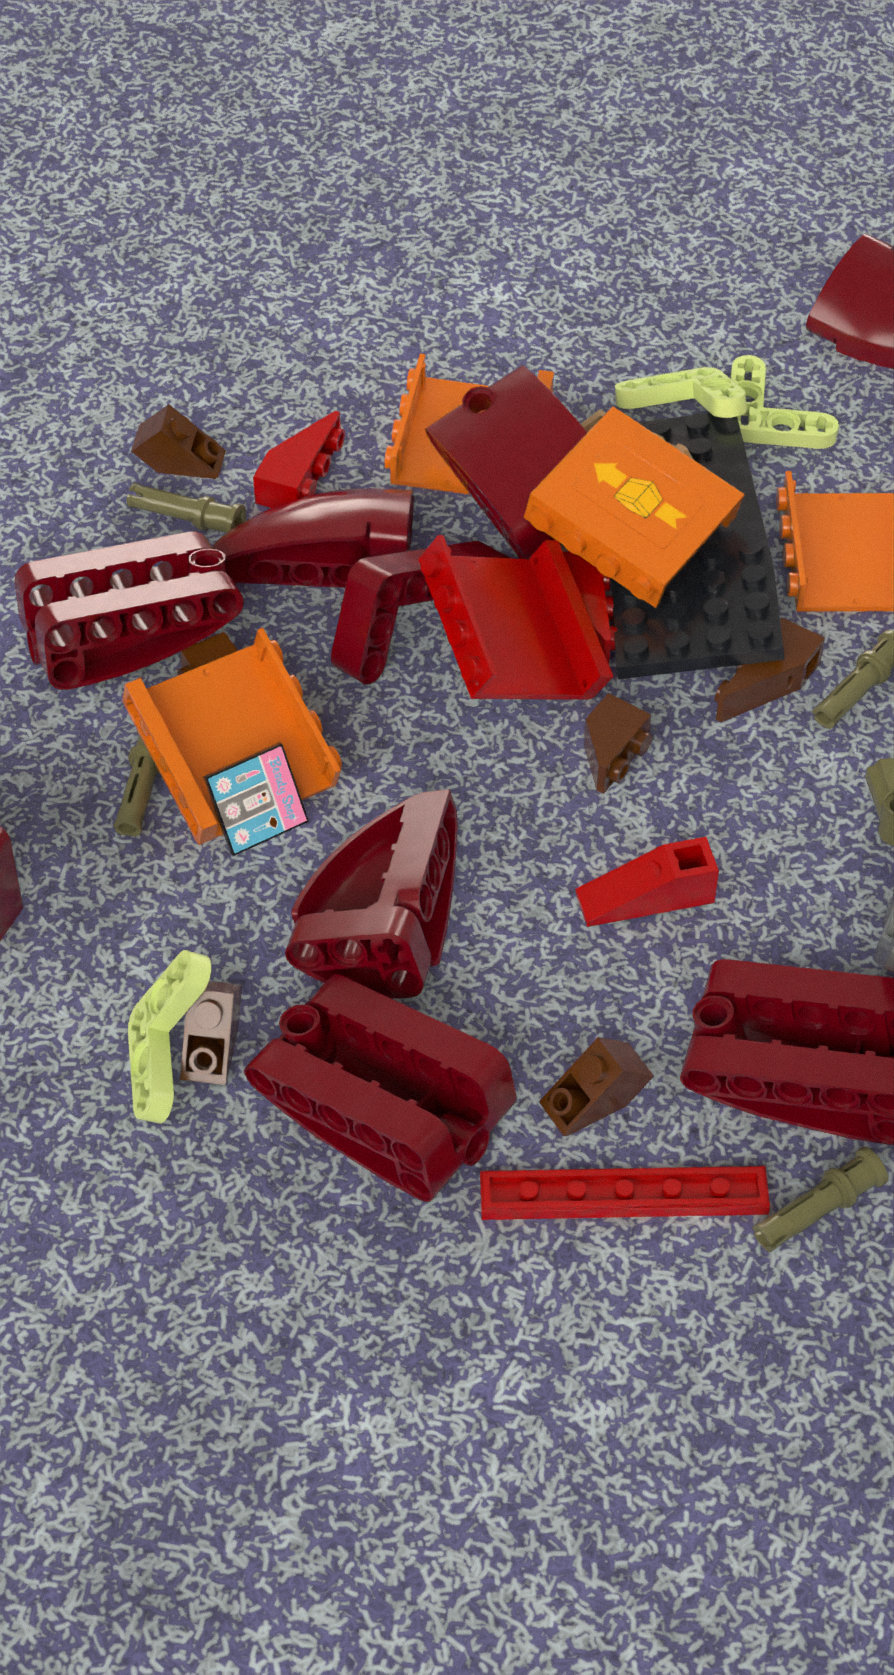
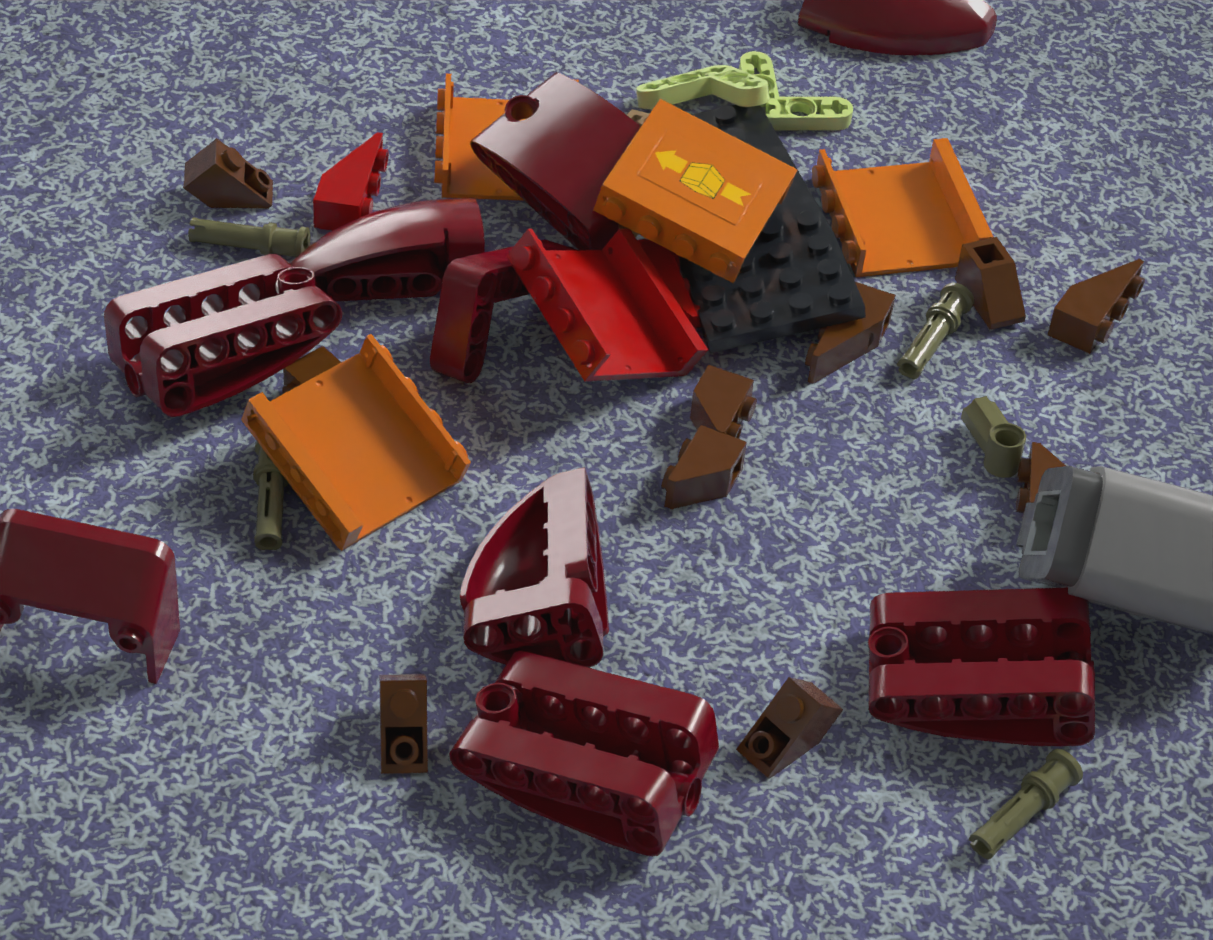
camera: 15 degrees left, 5 degrees down
(149, 1033) = (343, 724): yellowish green beam -> none
(256, 799) = (394, 498): piece -> none
(579, 803) = (704, 468): none -> reddish brown slope
(624, 1192) = (837, 823): red tile -> none
(655, 883) = (795, 534): red slope -> none

